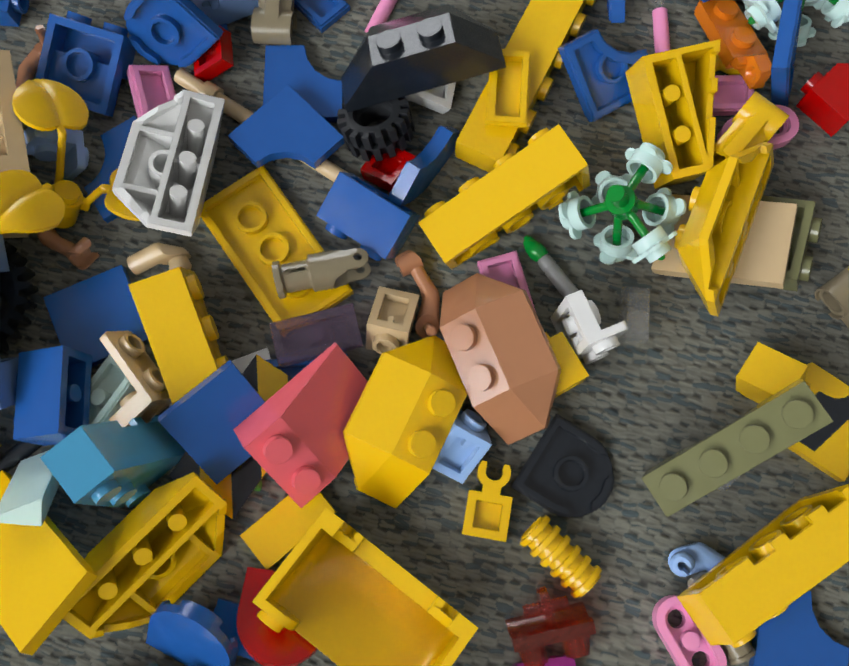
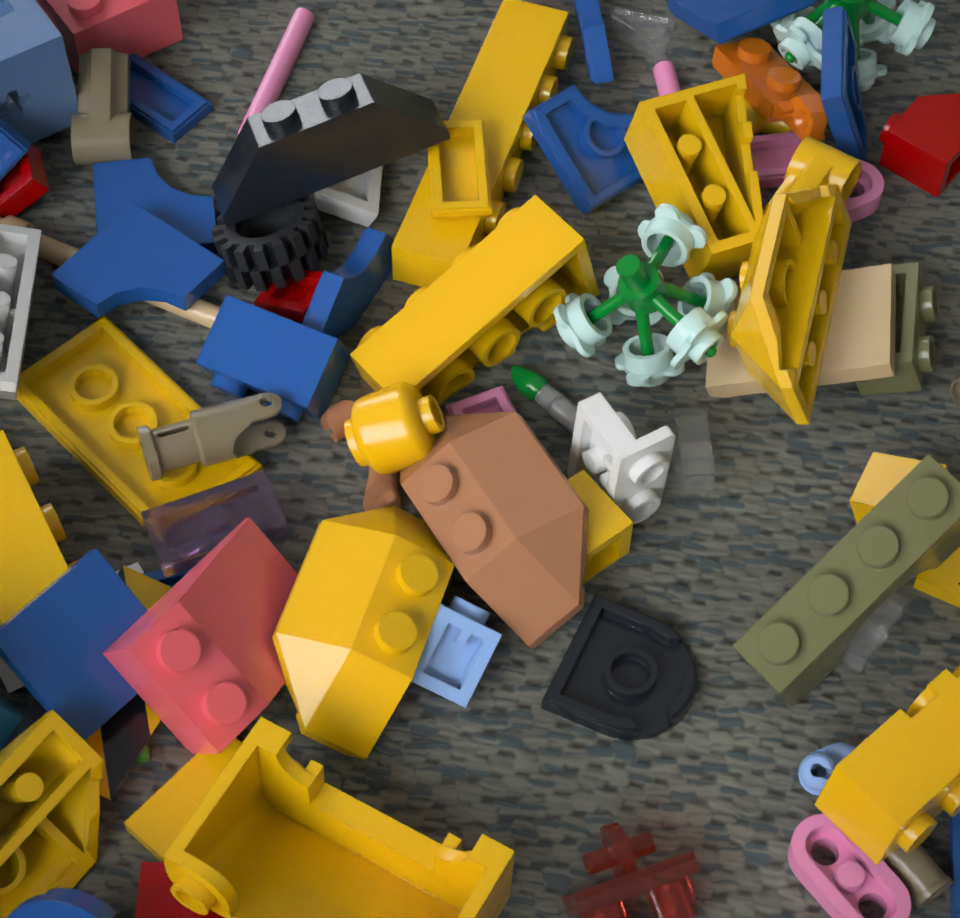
camera: 10 degrees left, 20 degrees down
(391, 319) = (322, 490): tan bracket -> none
(440, 285) = (393, 428): none -> yellow head
(488, 511) = (509, 734): yellow plate -> none
(561, 556) = (631, 785): yellow piece -> none

